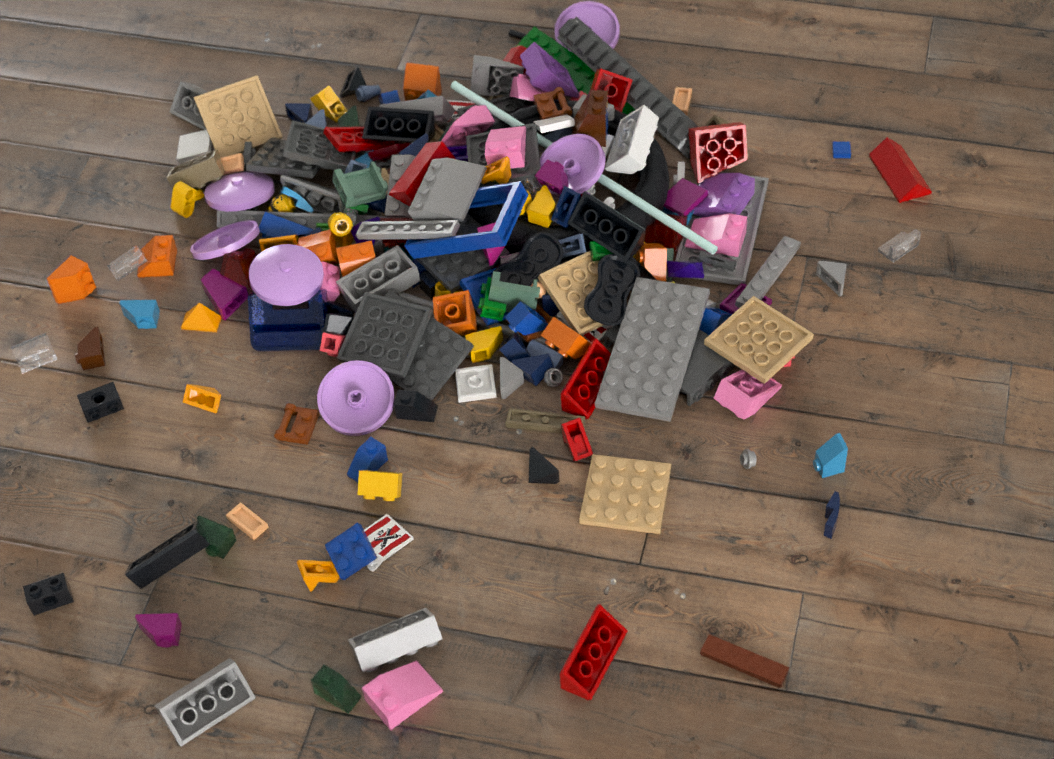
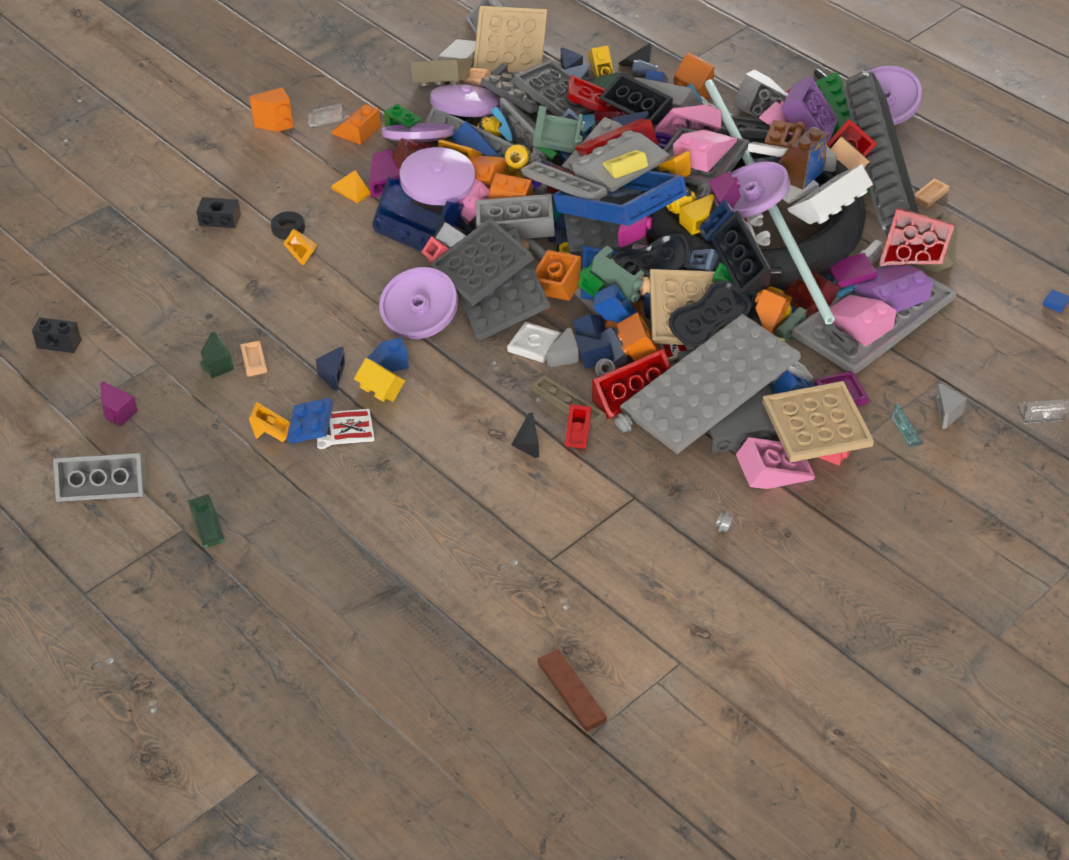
camera: 30 degrees right, 5 degrees down
(34, 353) = (201, 152): clear panel -> none
(91, 350) = (246, 170): reddish brown slope -> none
(141, 313) = (309, 160): dark azure slope -> none
(167, 555) = (164, 350): black slope -> none
(172, 373) = (287, 217): none -> black tyre
(184, 199) = (414, 87): yellow beam -> none
(192, 231) = (399, 115): none -> green bracket
(302, 427) = (358, 308): dark orange plate -> none
(325, 495) = (331, 367): none -> dark blue slope
(395, 639) = (285, 509): slope -> none
(400, 693) = (255, 553): bright pink slope -> none
(414, 406) = (463, 334): black slope -> none
(458, 190) = (626, 163): none -> light yellow slope
(484, 343) = (566, 310): yellow slope -> none
(592, 654) = (438, 607): red slope -> none
(606, 417) = (623, 423): none -> light grey plate
(621, 101) = (848, 154): none -> light nougat tile
(625, 494) = (587, 496): tan plate -> none
(685, 269) = (802, 332): dark purple slope -> none
(769, 270) = (889, 372): light grey plate -> none
(816, 309) = (906, 427): none -> clear light blue slope
(831, 457) = (802, 558): dark azure slope -> none
(831, 514) = (763, 611): dark blue slope -> none

